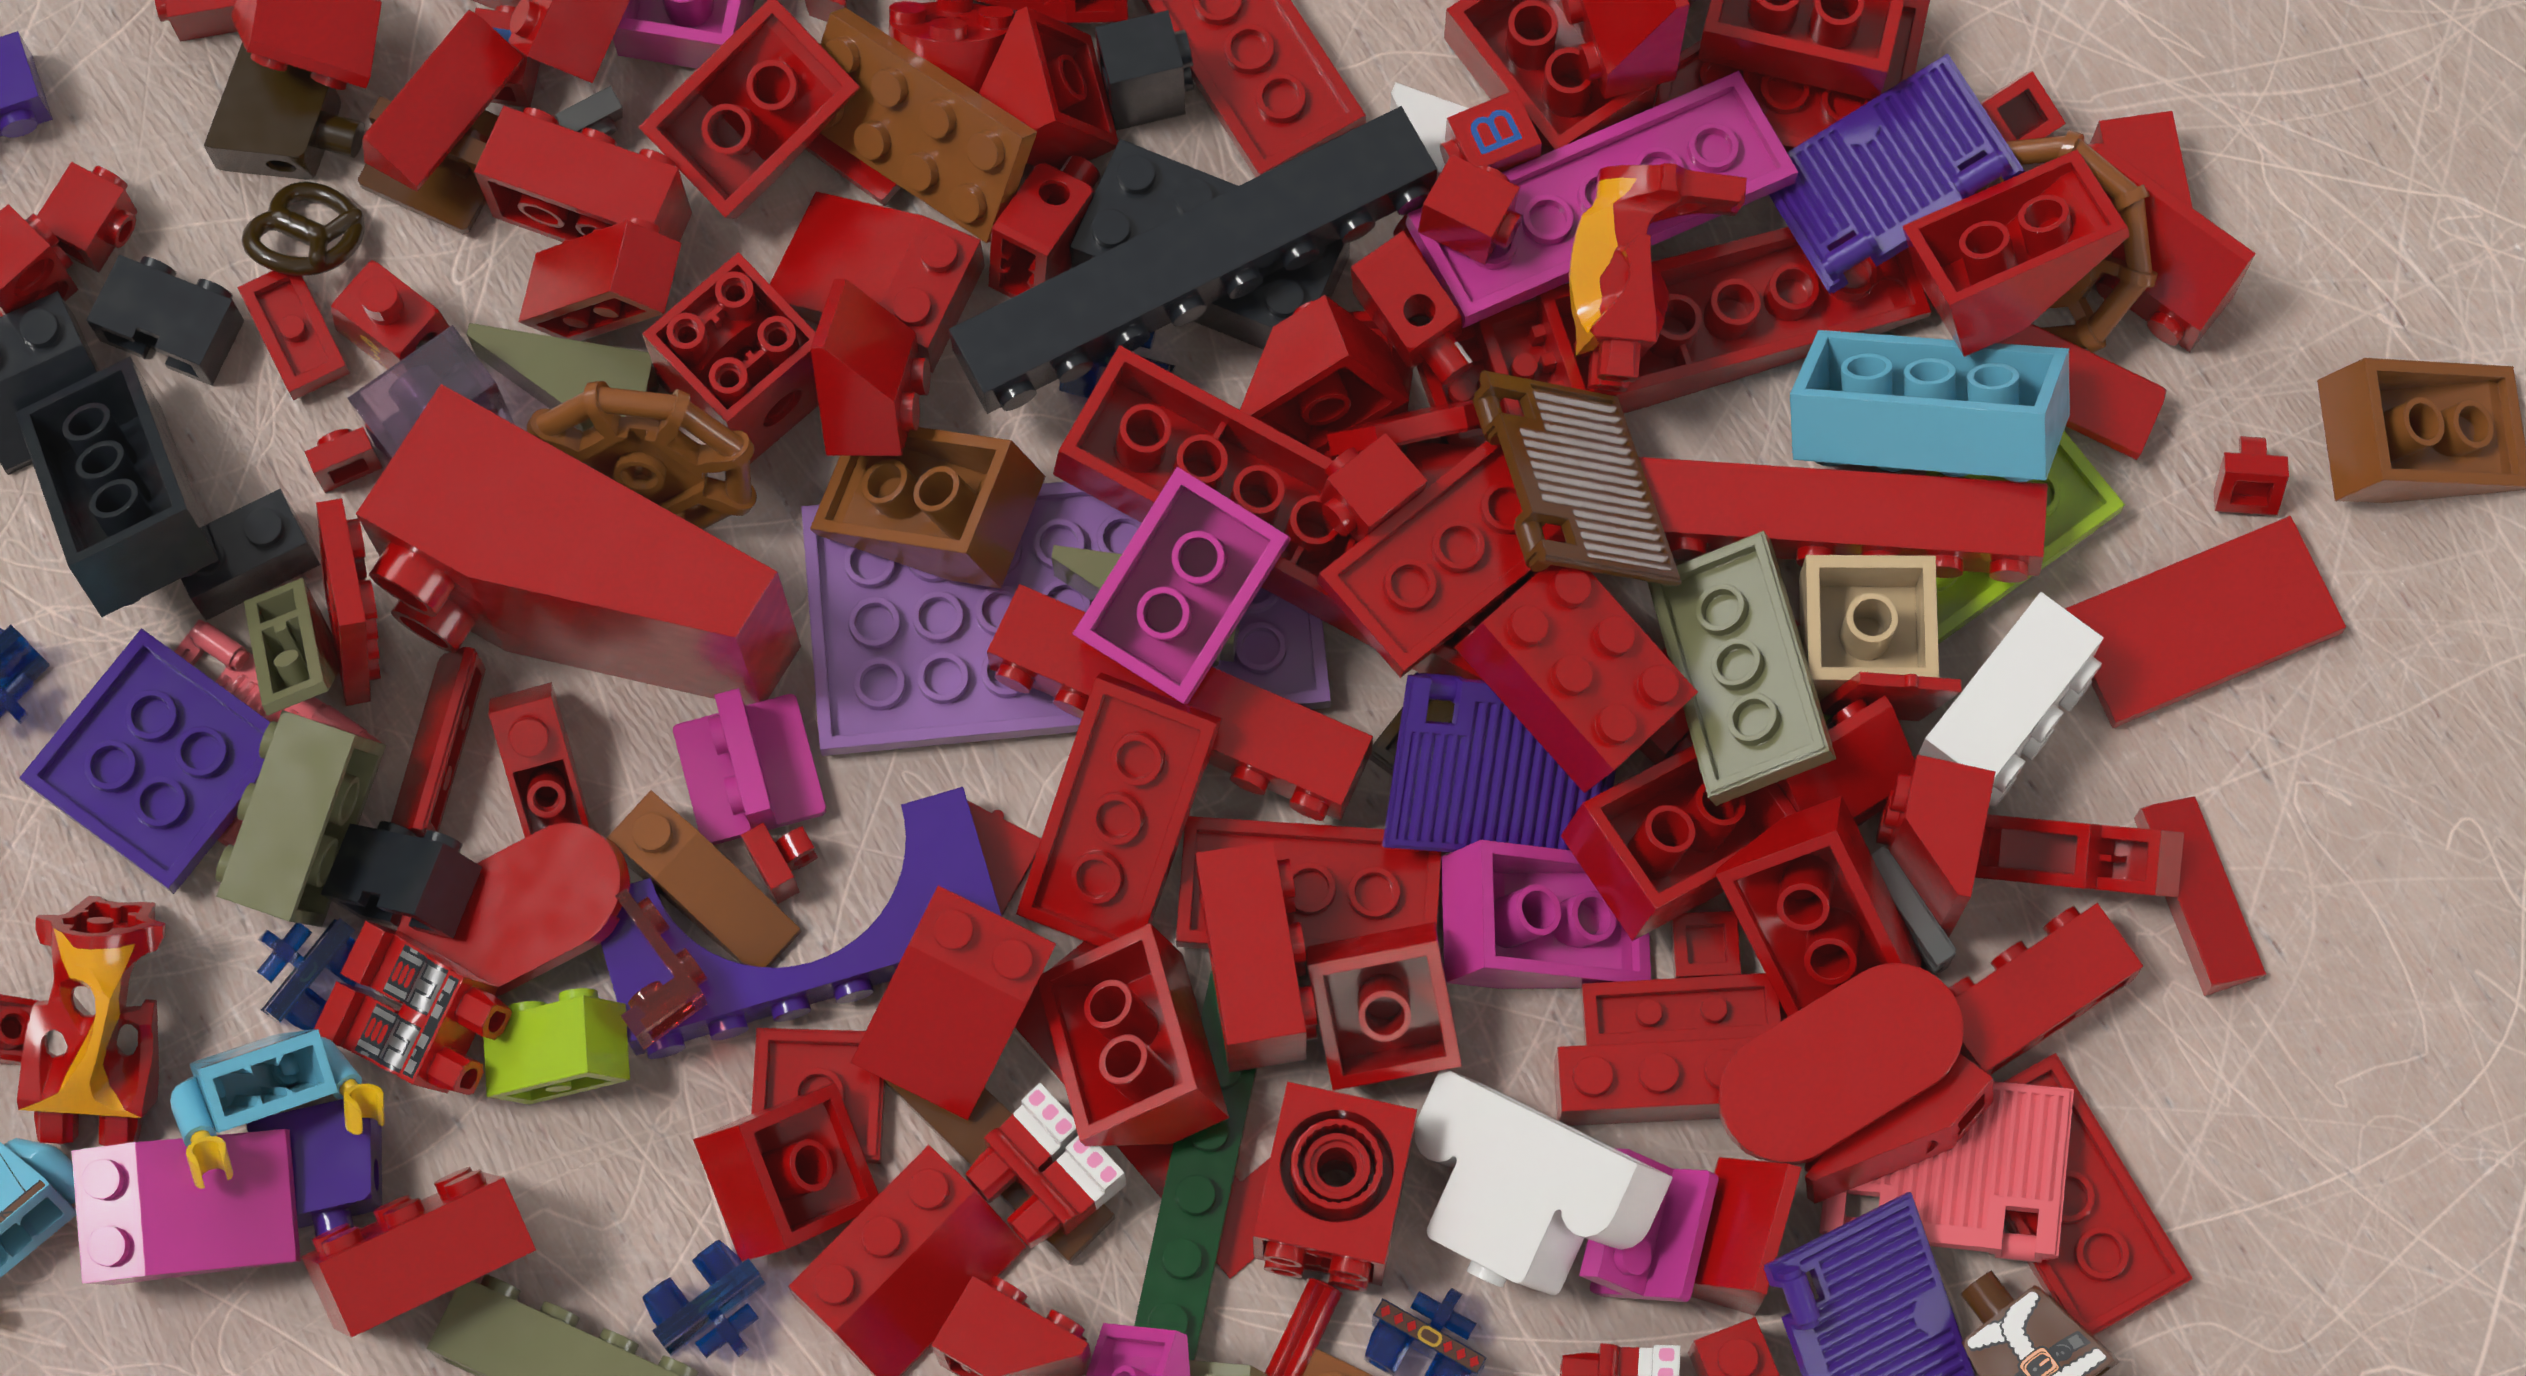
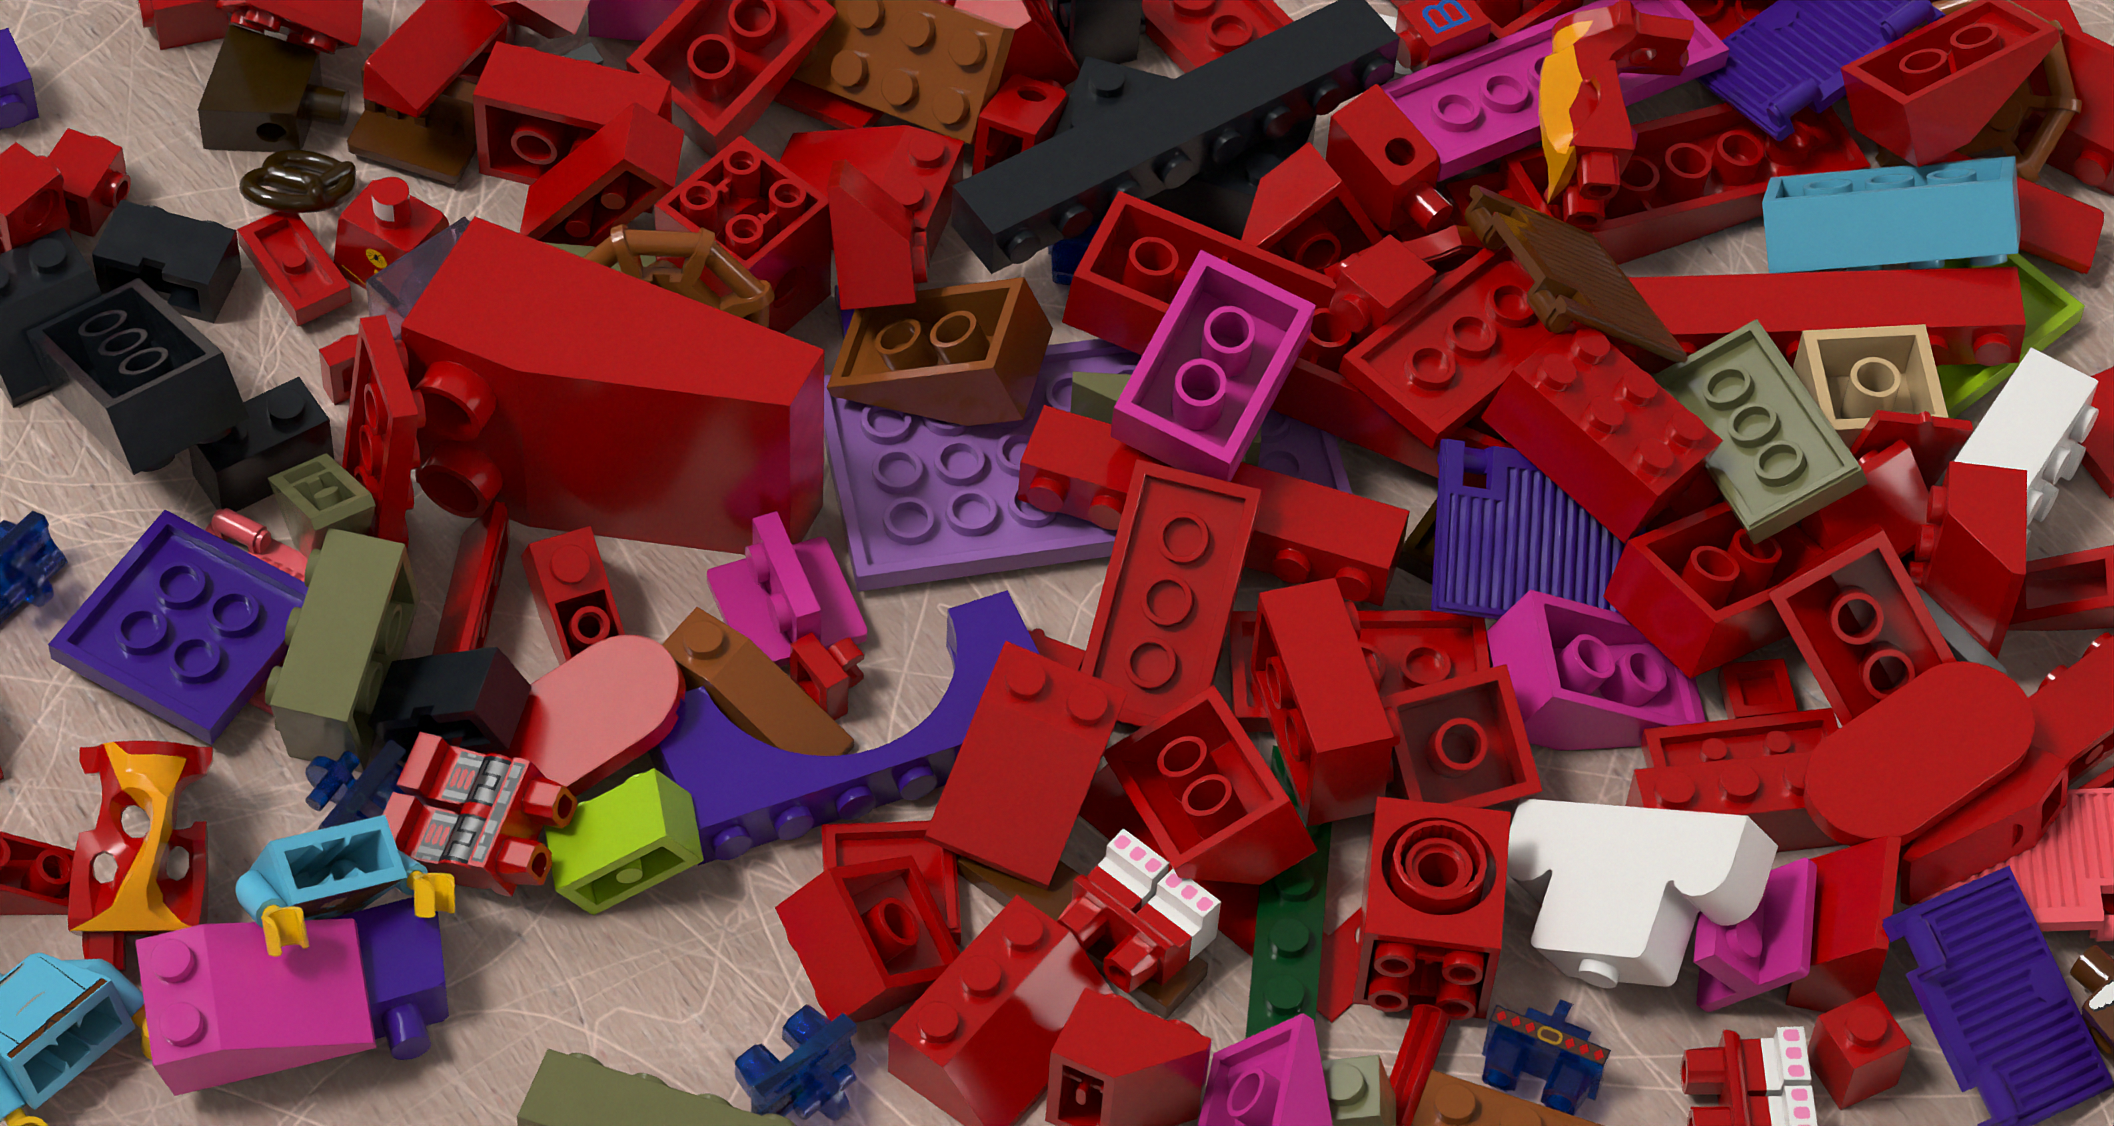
camera: 10 degrees left, 20 degrees down
(416, 1250) = (501, 1017): red brick -> none
(657, 1006) = (747, 762): clear red bracket -> none
(1471, 209) = (1435, 73): red brick -> none

